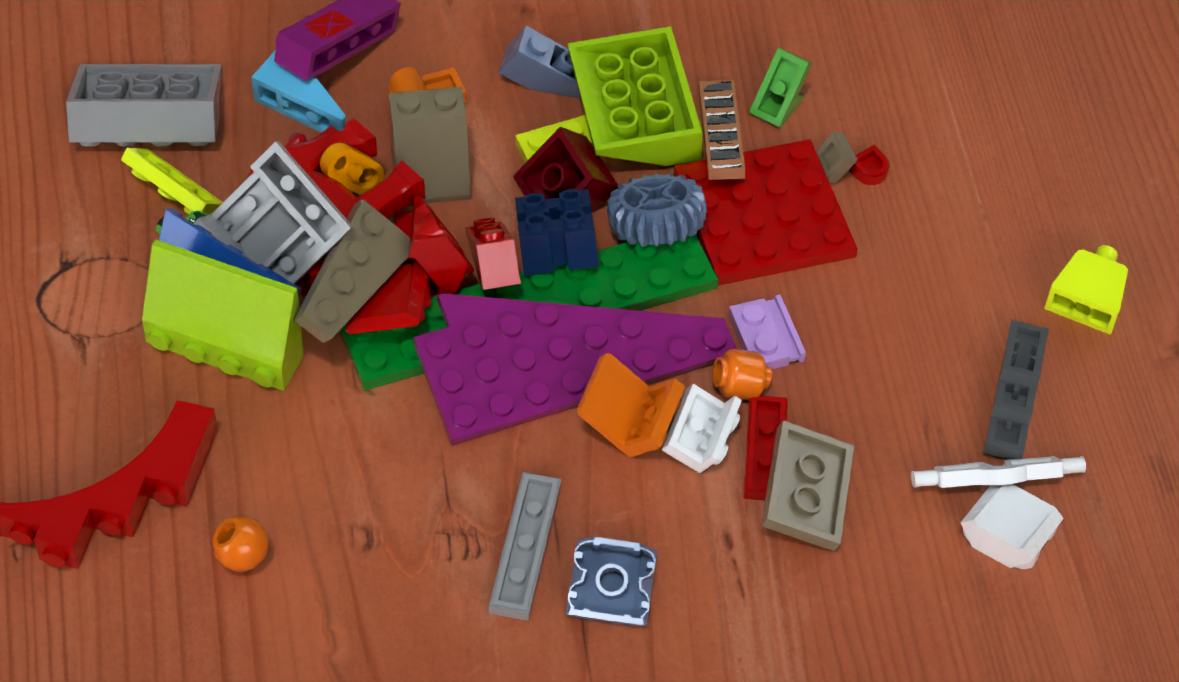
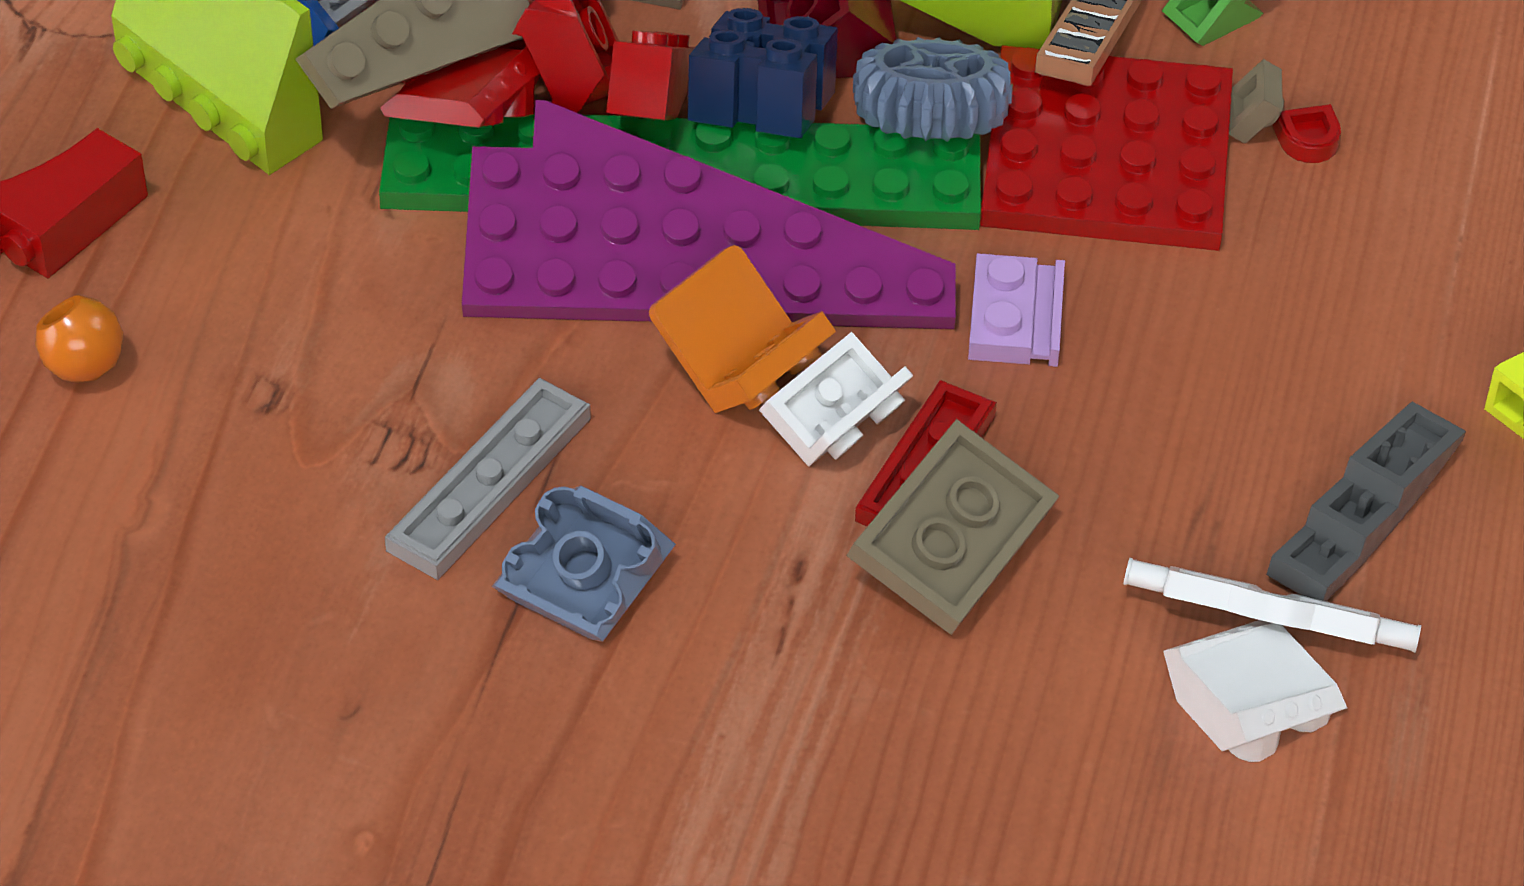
camera: 25 degrees right, 5 degrees down
(741, 374) = (940, 346): orange head -> none

